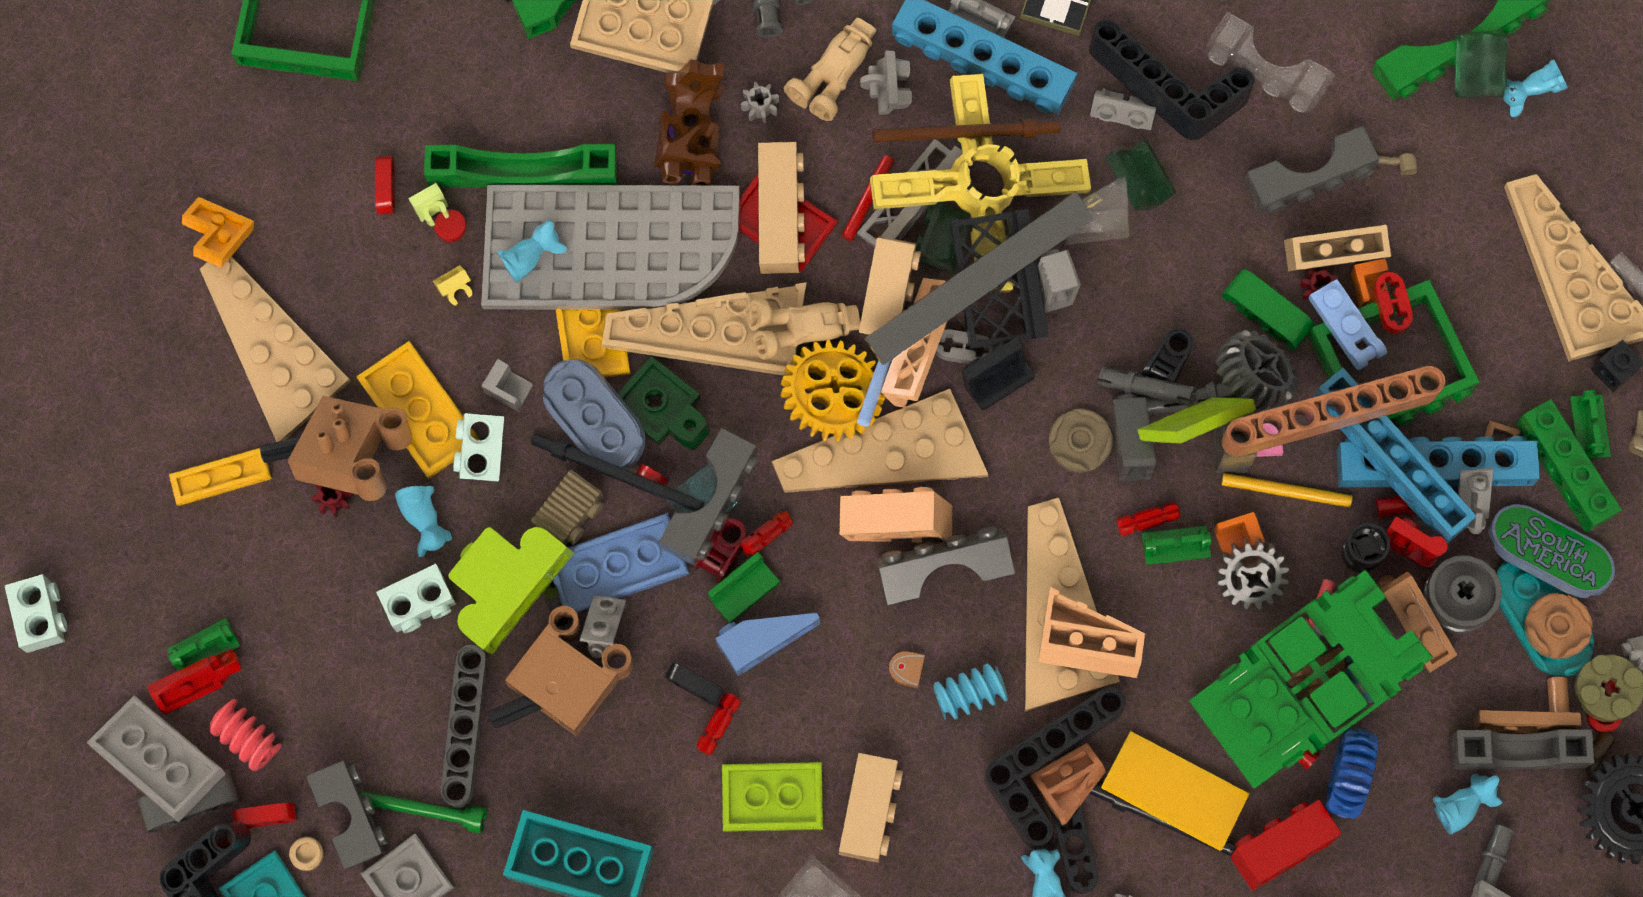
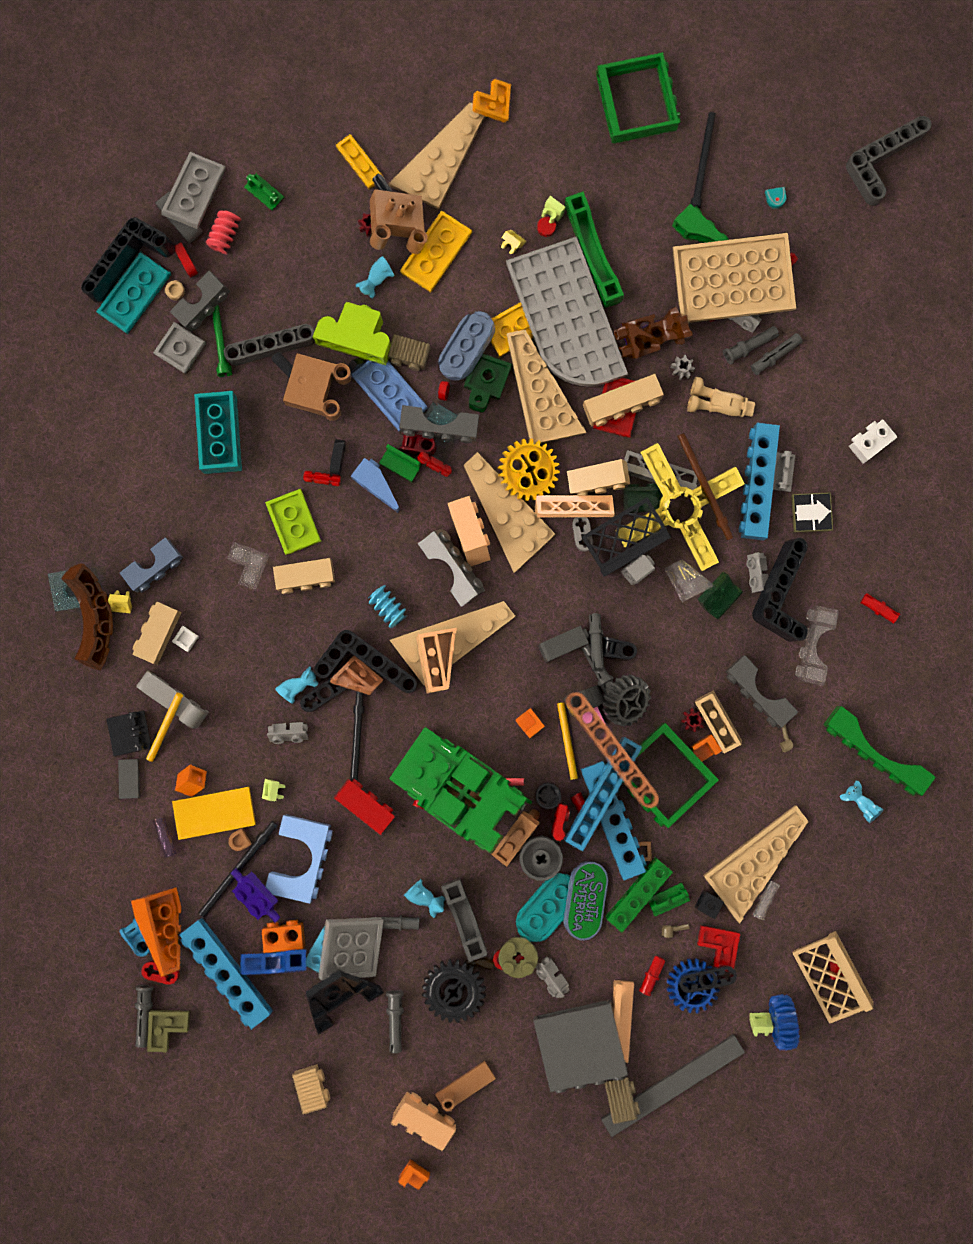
camera: 65 degrees right, 10 degrees up
(28, 617) = (245, 93): light aqua brick -> none
(193, 681) = (243, 194): red hinge -> none
(385, 185) = (555, 181): red beam -> none
(413, 590) = (332, 289): light aqua brick -> none
(489, 448) = (425, 296): light aqua brick -> none
(506, 386) = (466, 292): light grey panel -> none
(527, 252) = (541, 271): medium azure animal -> none
(563, 450) = (441, 338): black bar -> none
(602, 623) = (350, 393): light grey hinge -> none
(802, 324) = (559, 439): tan piece -> none
(866, 201) = (640, 447): red bar -> none
(873, 394) = (541, 491): light blue bar -> none
(883, 83) = (729, 432): light grey hips -> none
(906, 668) = (389, 568): medium nougat tile -> none
(979, 278) = (620, 525): dark grey tile -> none
(997, 374) = (572, 557): black bracket -> none
(1080, 452) = (553, 622): dark tan tile -> none
(1148, 518) = (522, 670): red axle -> none
(1175, 791) = (373, 736): yellow tile -> none
(1176, 545) = (512, 690): green hinge -> none
(1196, 420) = (581, 675): lime tile -> none
(1250, 560) = (509, 737): dark grey gear -> none
(1269, 308) = (669, 694): green beam -> none
(1347, 324) = (673, 741): light blue plate -> none
(1352, 773) = (415, 829): blue gear -> none
(1385, 304) = (693, 760): red beam -> none
(1475, 491) = (599, 847): light grey hinge -> none
(1480, 64) = (862, 767): clear green bracket -> none
(1530, 722) = (489, 934): medium nougat piece -> none
(1558, 626) = (543, 917): medium nougat tile -> none

